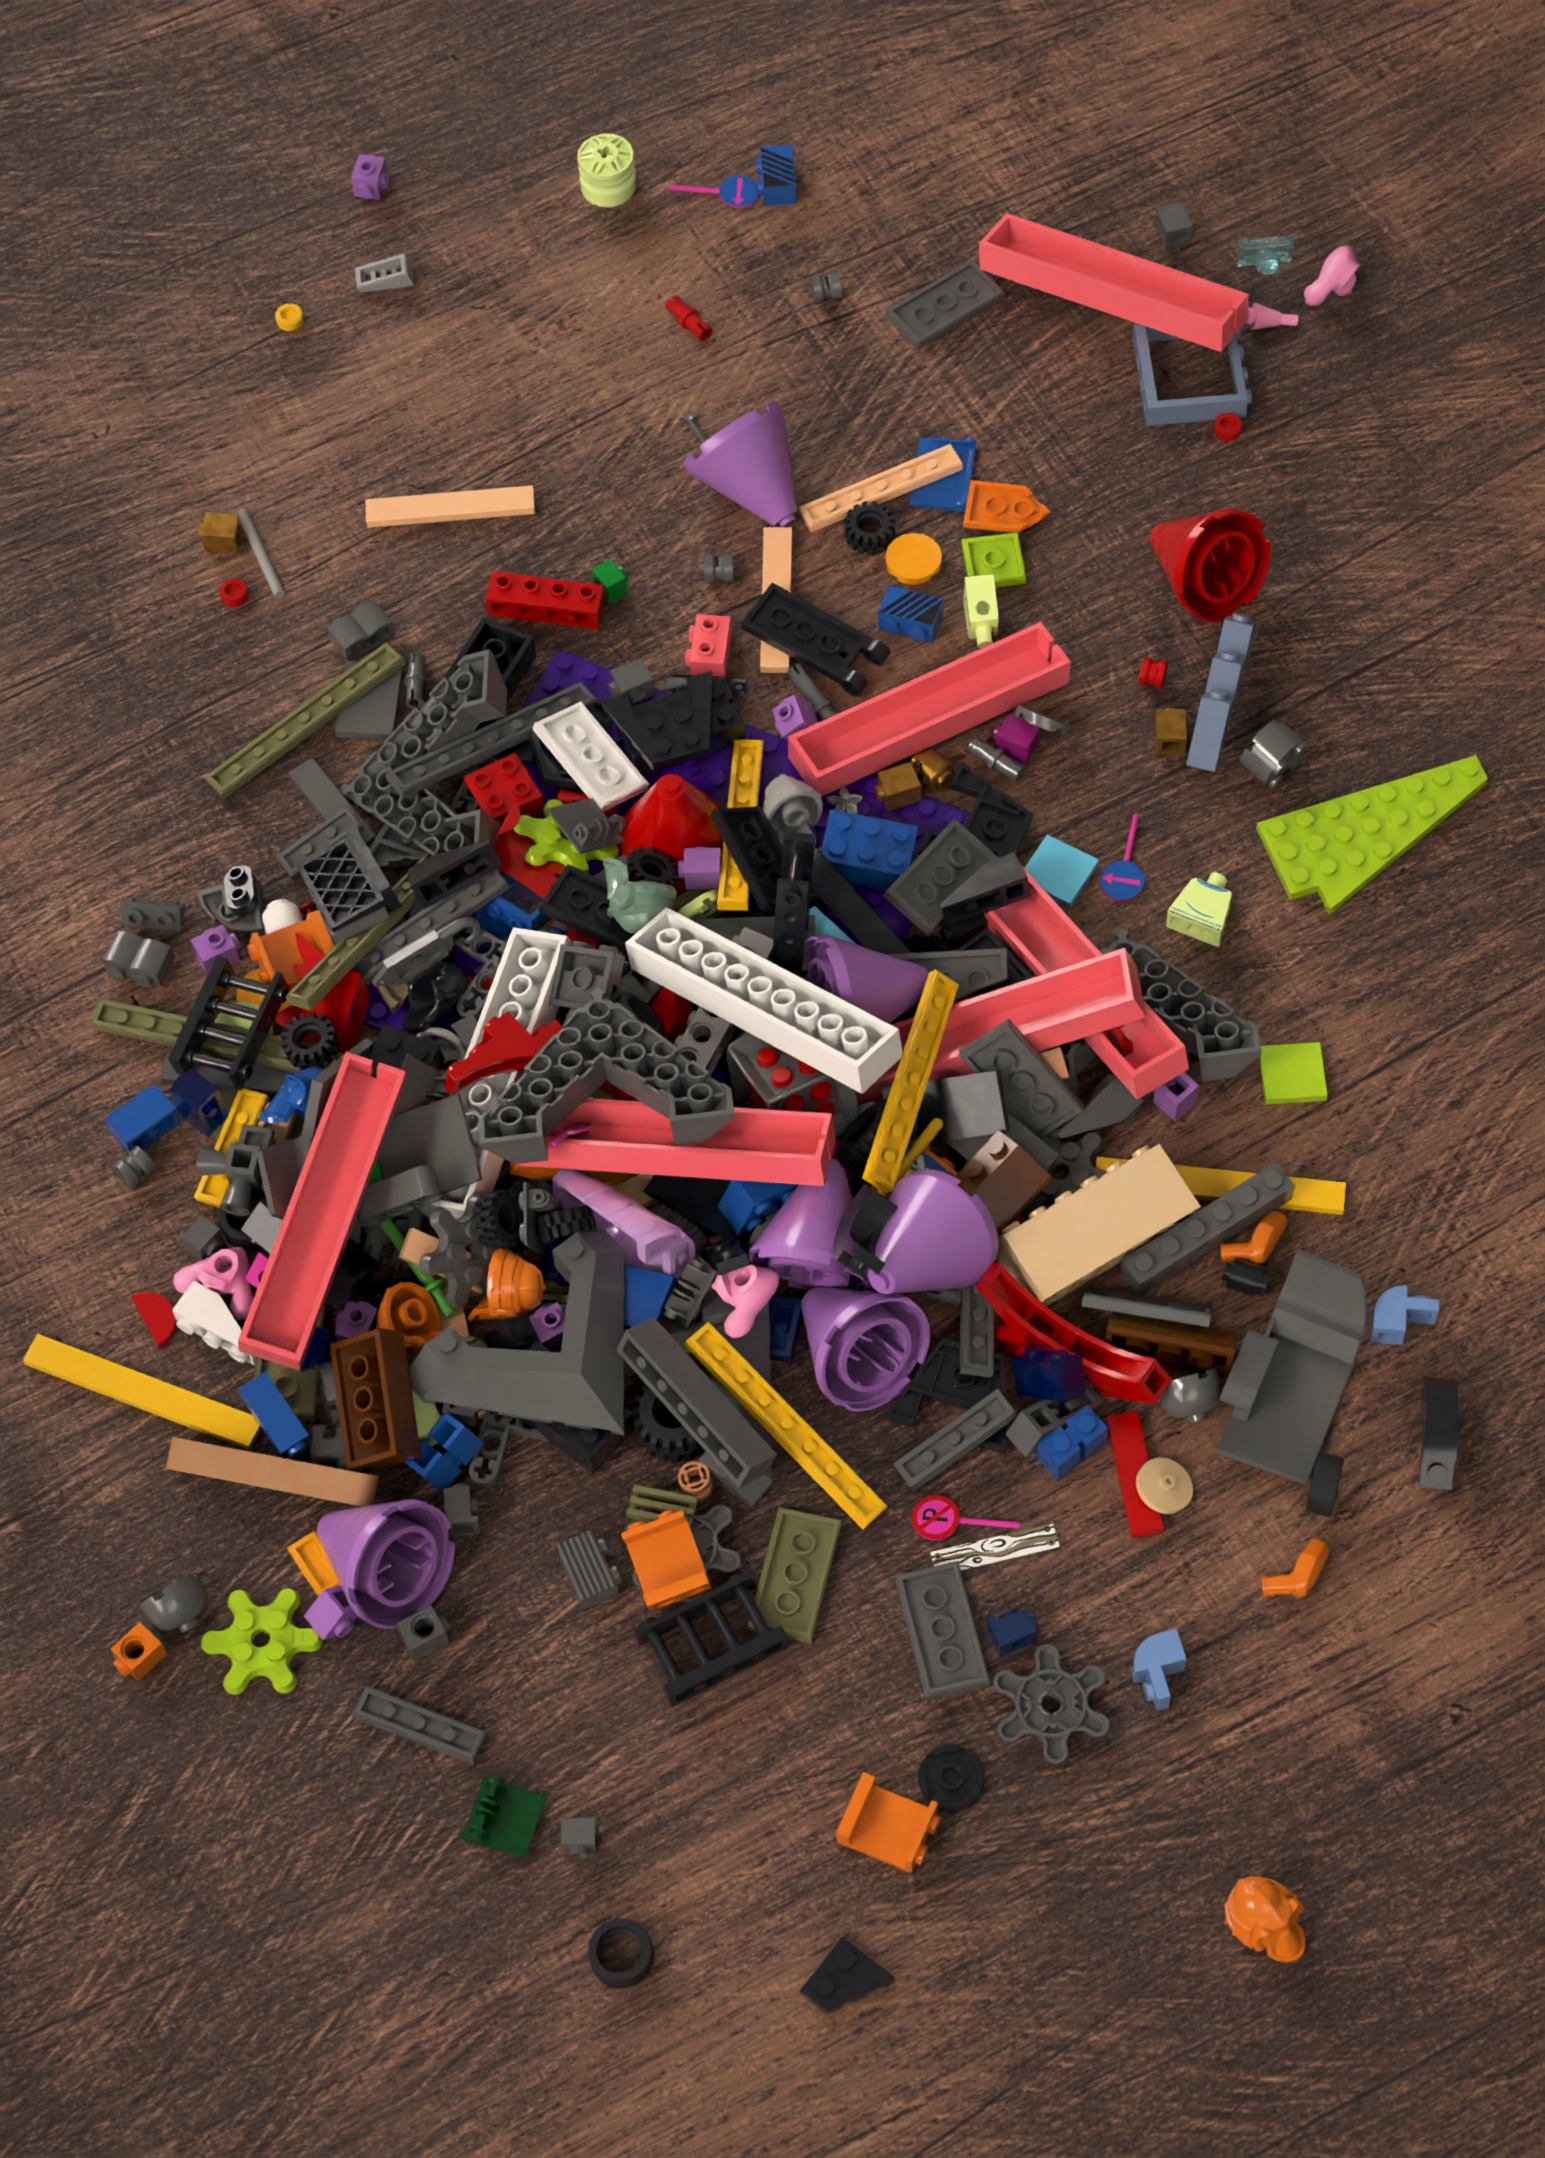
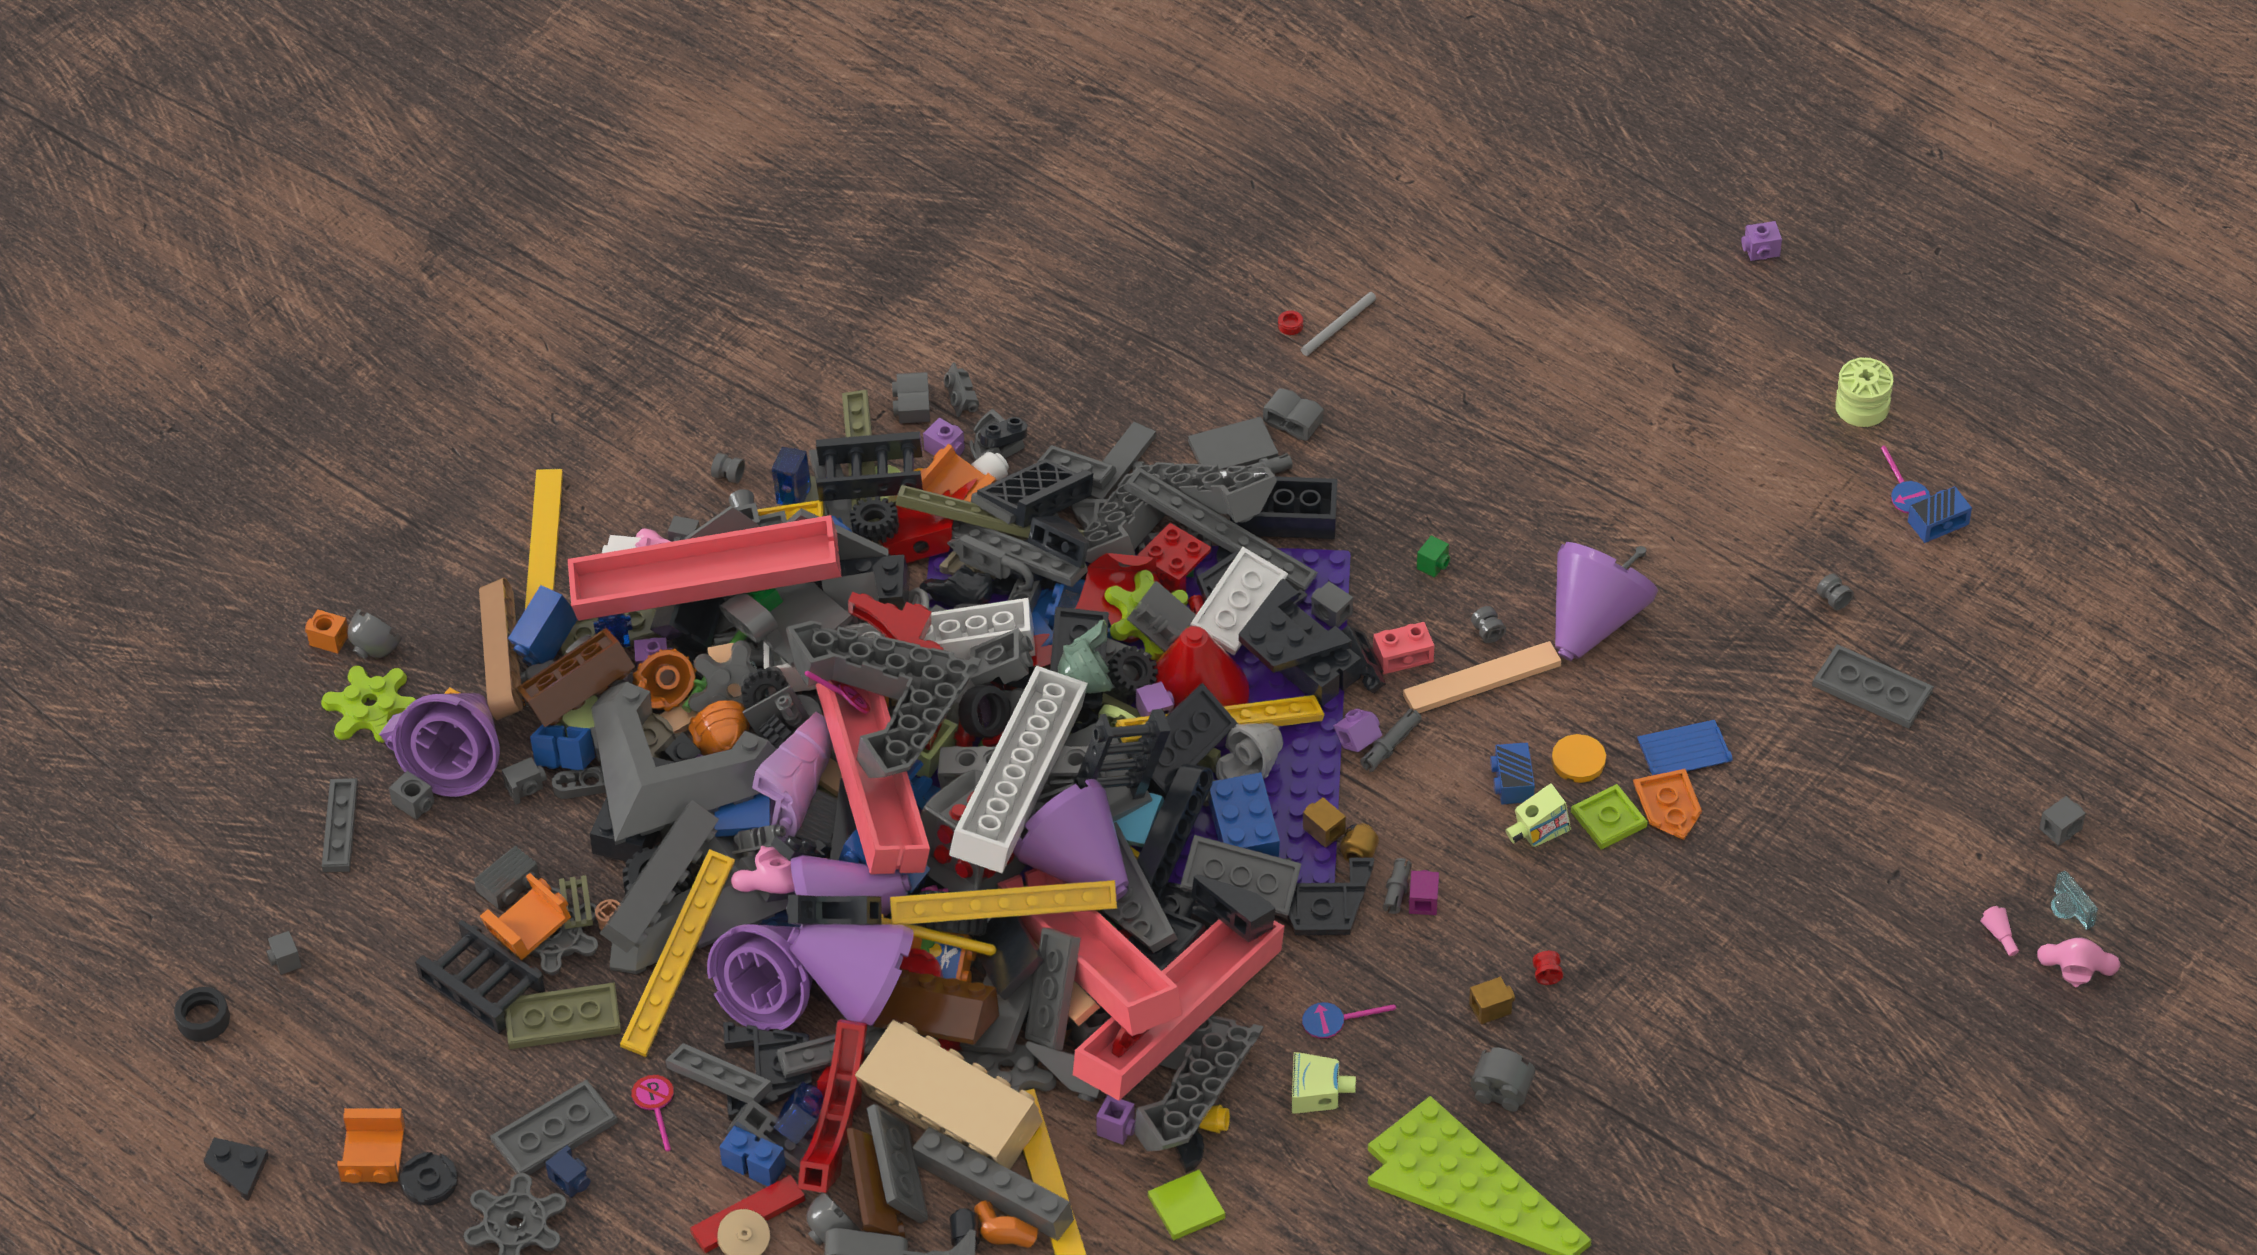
camera: 65 degrees right, 10 degrees down
(143, 1119) = (761, 453): blue brick -> none
(157, 1315) = (615, 526): red tile -> none
(221, 533) = (1340, 289): pearl gold brick -> none
(289, 317) = (1588, 249): yellow tile -> none
(304, 720) = (1188, 412): olive tile -> none
(395, 280) = (1671, 294): light grey slope -> none
(450, 506) = (1454, 426): light nougat tile -> none
(504, 1817) = (284, 902): dark green hinge -> none
(545, 600) = (1391, 521): red brick -> none
(688, 318) = (1745, 511): red pin -> none
(813, 637) = (1449, 710): black hinge -> none
(845, 802) = (1294, 794): light grey plant -> none
(869, 515) = (1591, 702): black tyre -> none
(881, 487) = (1640, 708): light nougat tile -> none
(928, 709) = (1414, 815): coral piece -> none
(998, 1547) = (644, 1144): sticker -> none
(1042, 720) = (1447, 898): dark grey tile -> none
(1061, 870) = (1307, 970): medium azure tile -> none
(1114, 282) = (1950, 788): coral piece -> none
(1187, 409) = (1887, 850): sand blue window -> none
(1213, 560) = (1670, 963): red cone -> none
(1221, 691) = (1551, 1007): sand blue arch -> none
(1228, 426) = (1858, 939): red tile -> none

